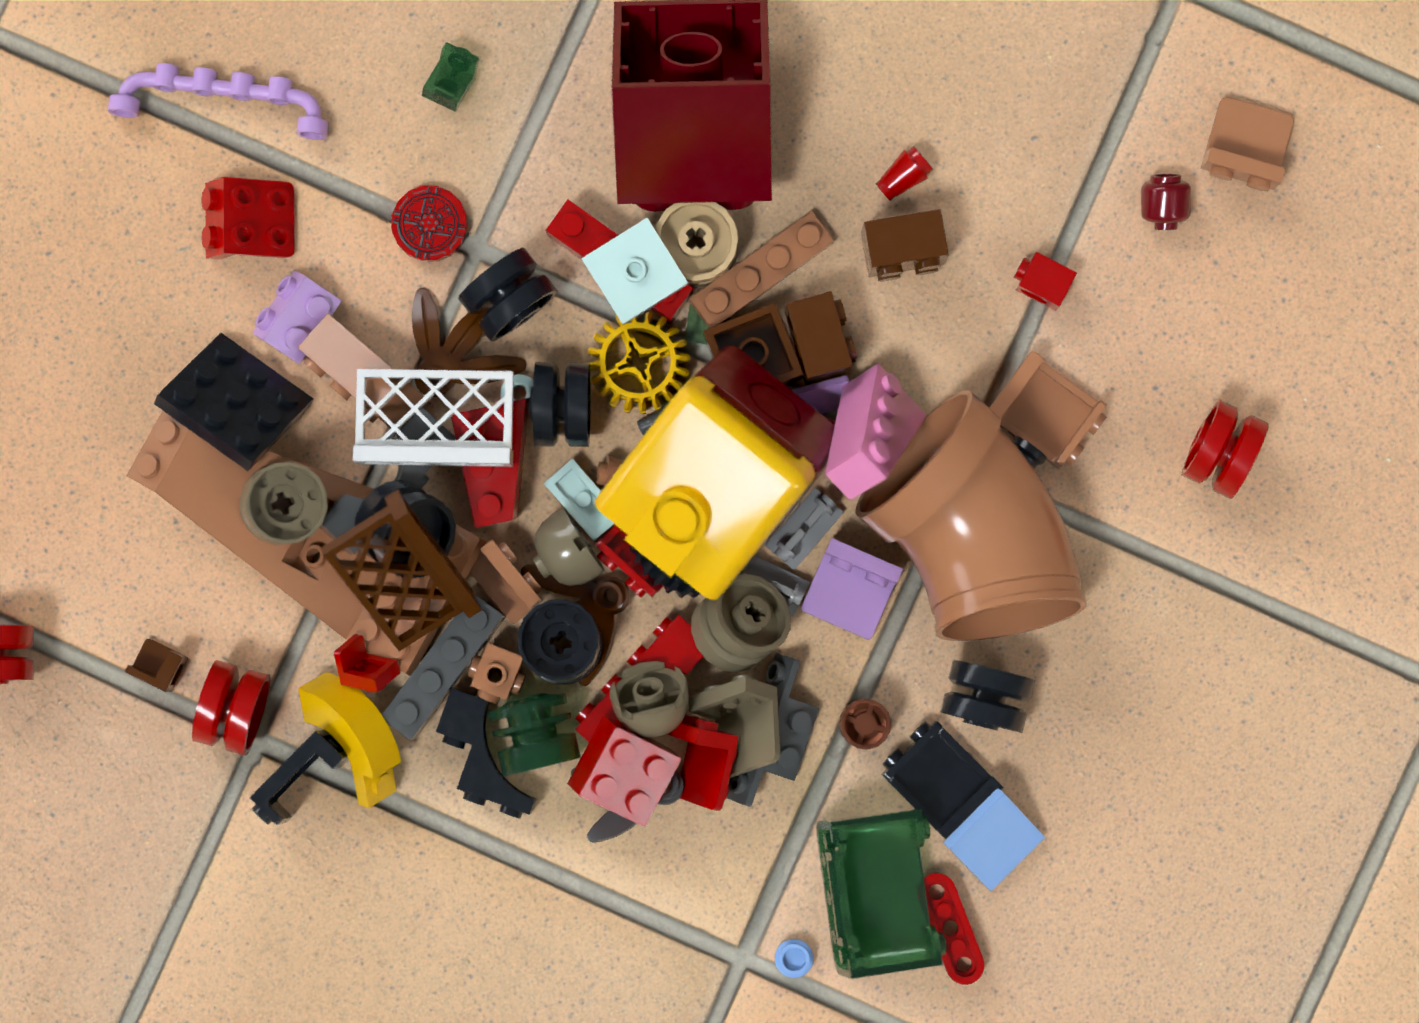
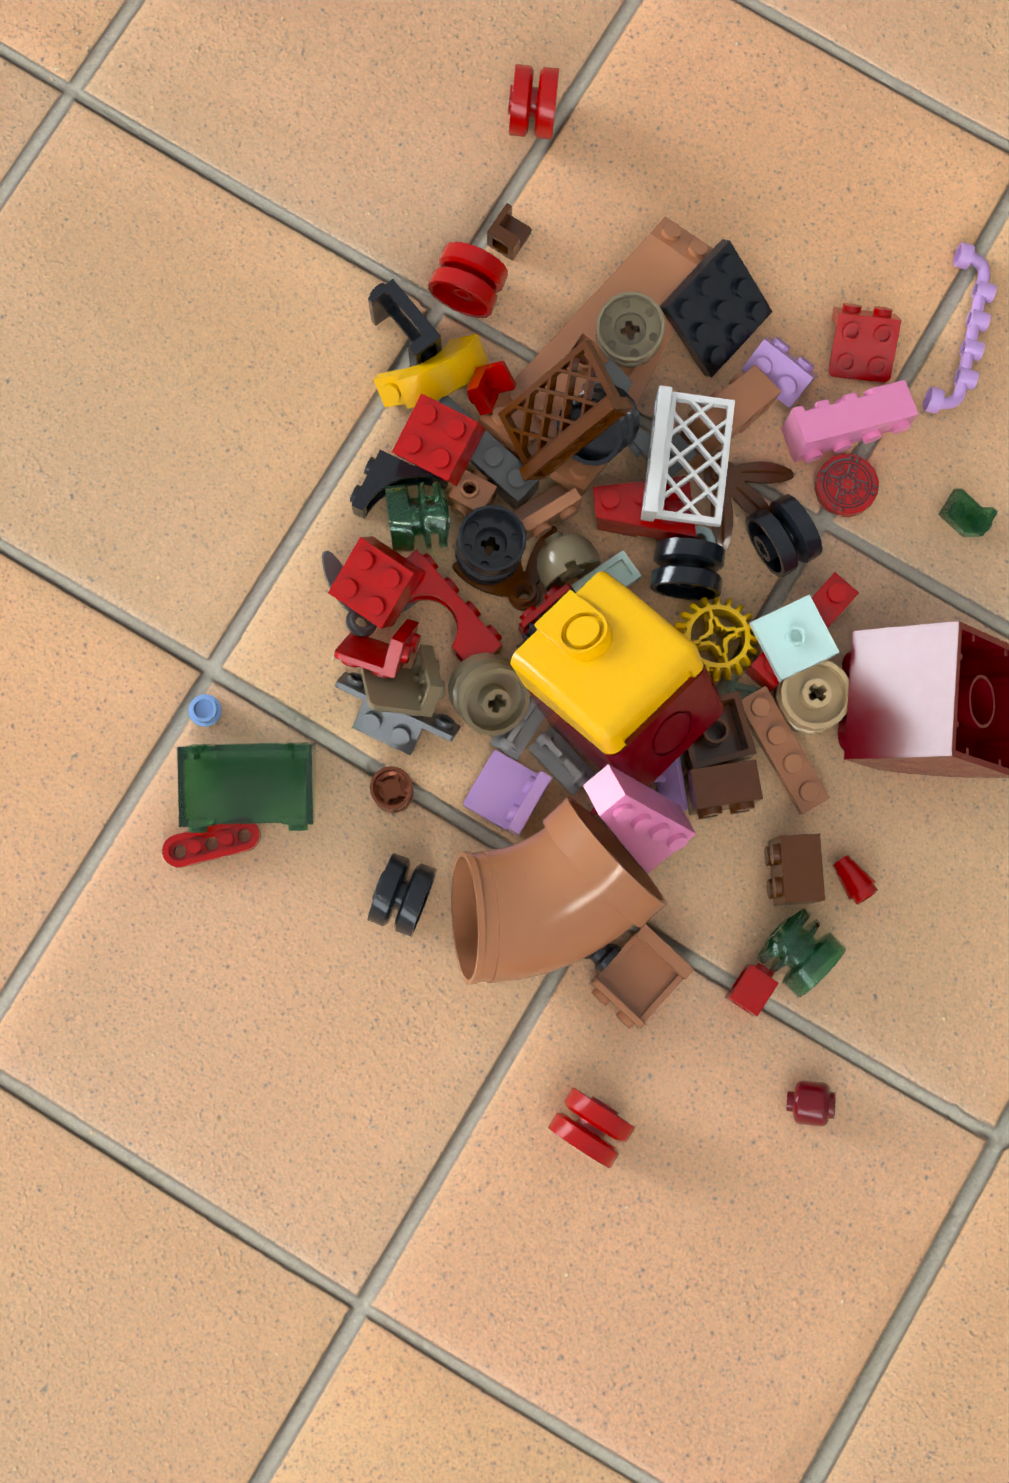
camera: 85 degrees right, 5 degrees down
(352, 227) = (848, 421): none -> bright pink wedge
(445, 717) = (439, 439): none -> red brick
(650, 699) = (433, 609): dark tan cylinder -> none
(939, 778) = (337, 849): black panel -> none
(994, 839) = (280, 887): light blue tile -> none
(1002, 224) = (797, 949): none -> clear green wheel
(1248, 144) = (855, 1183): nougat bracket -> none

